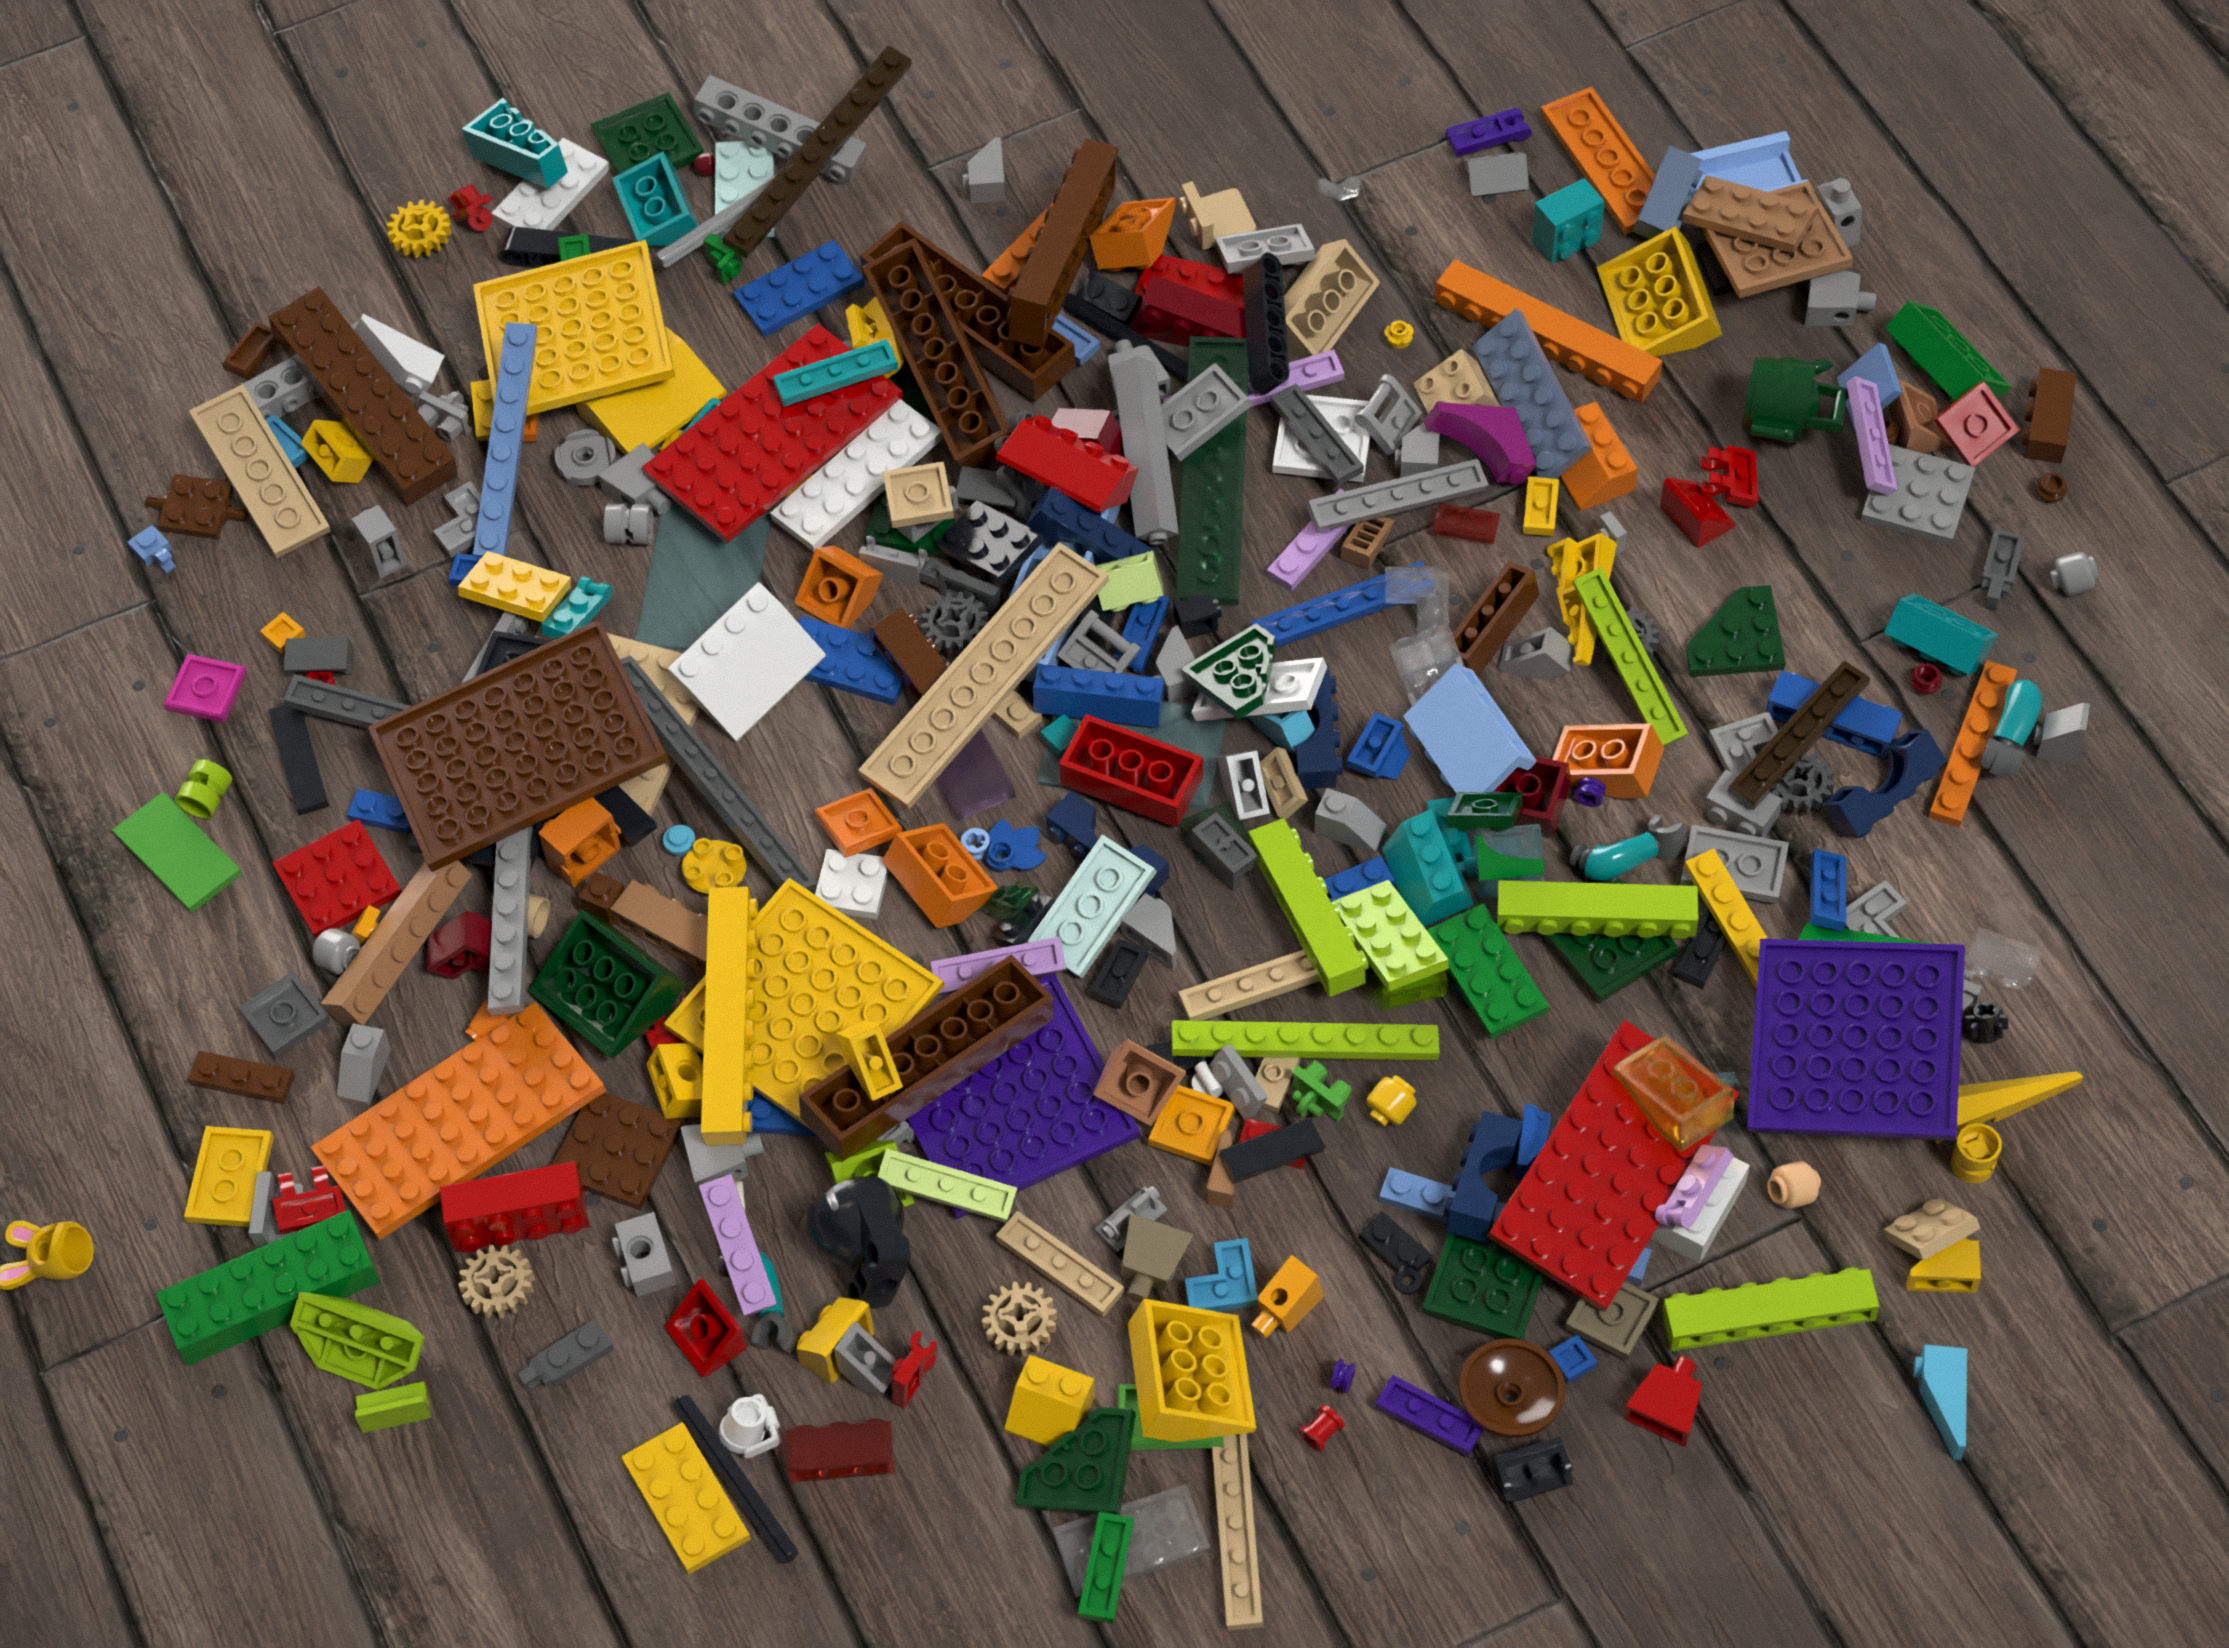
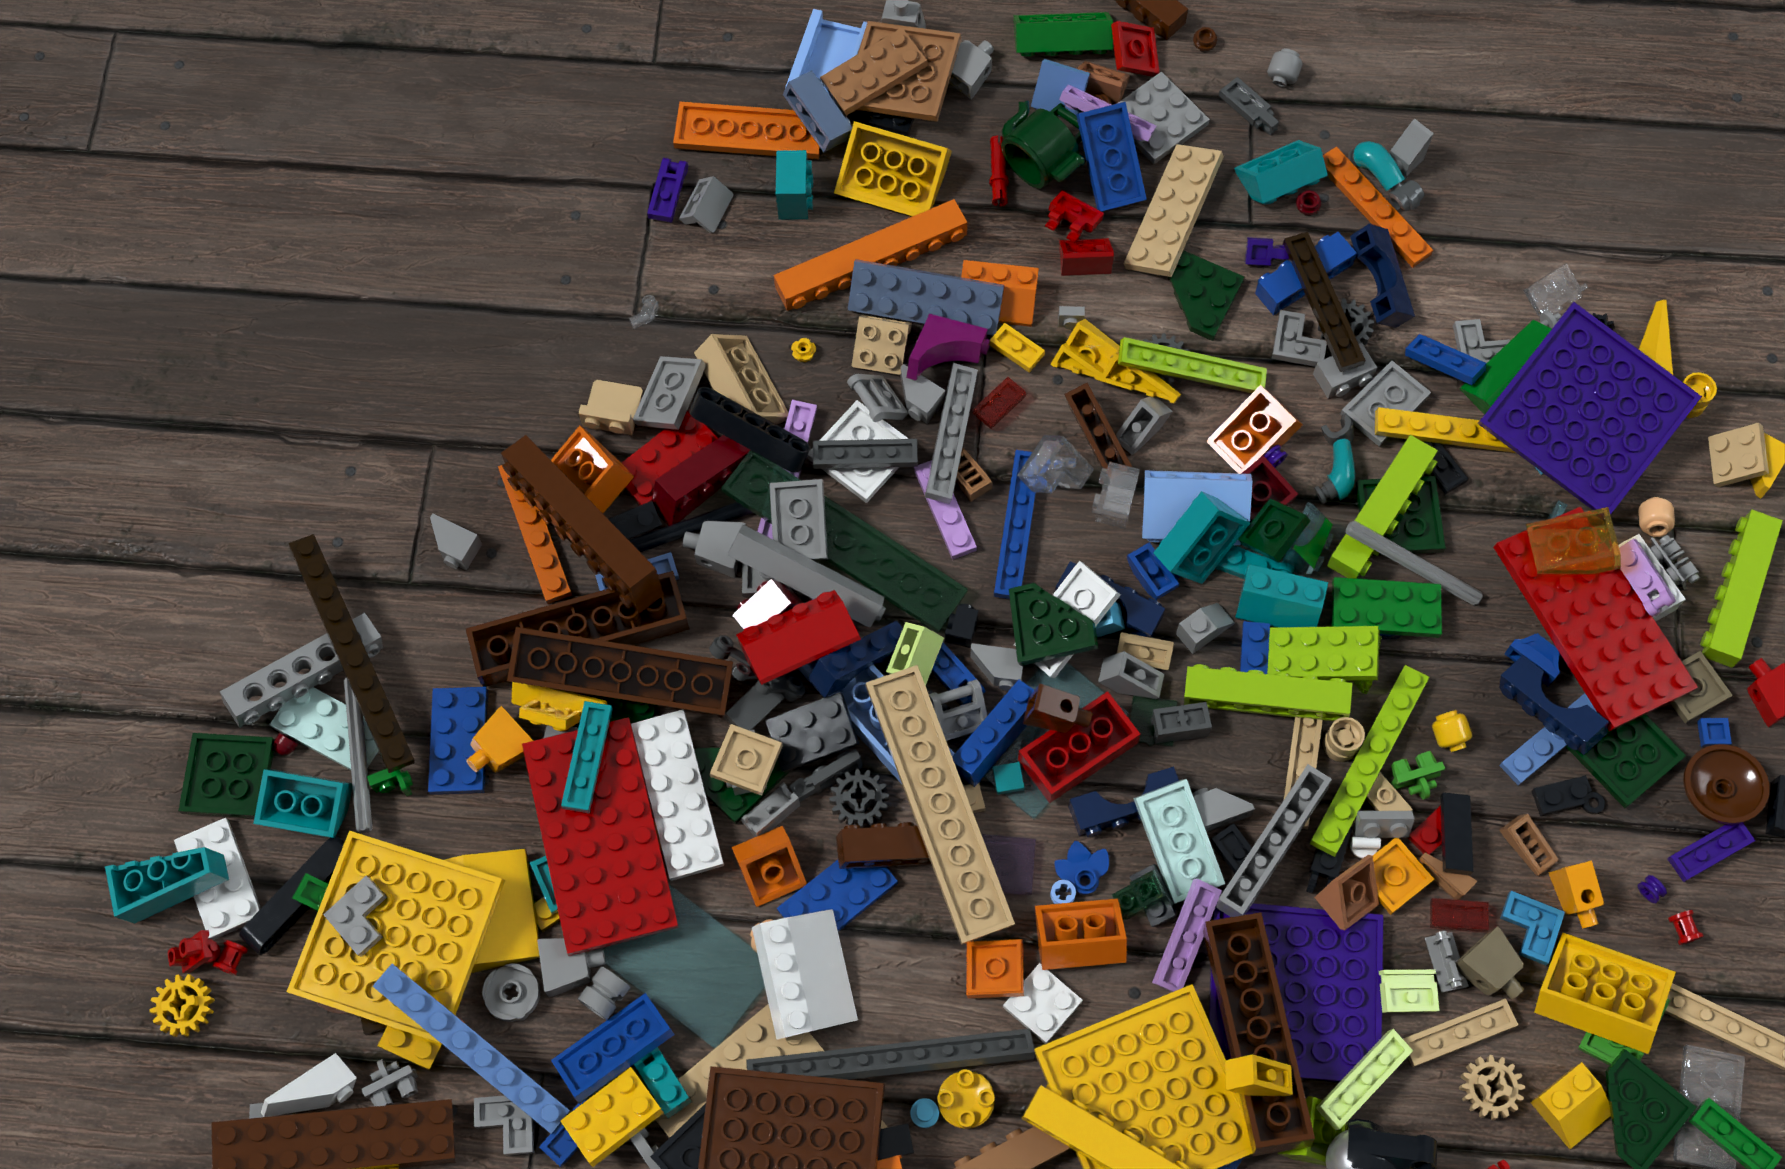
camera: 60 degrees left, 10 degrees up
(492, 241) = (230, 957): none -> red bush
(570, 282) = (350, 914): none -> light grey plate
(581, 557) = (612, 1047): none -> blue plate
(809, 307) = (498, 743): none -> light orange torso
(1072, 1192) = (1408, 991): none -> yellowish green plate
(1141, 709) = (1055, 710): none -> reddish brown torso
(1143, 982) = (1274, 842): none -> light grey brick
(1189, 1204) = (1459, 915): none -> clear red plate
(1308, 999) = (1343, 739): none -> tan wheel
(1327, 1213) = (1522, 849): none -> medium nougat slope
(1432, 757) = (1201, 538): none -> teal slope
(1551, 965) = (1413, 562): none -> light grey axle
(1722, 393) = (999, 179): none -> red pin
(1743, 1218) = (1666, 549): none -> light grey hinge
(1813, 559) = (1173, 210): none -> tan plate
(1820, 464) = (1111, 156): none -> blue plate
(1824, 659) = (1261, 250): none -> dark purple plate

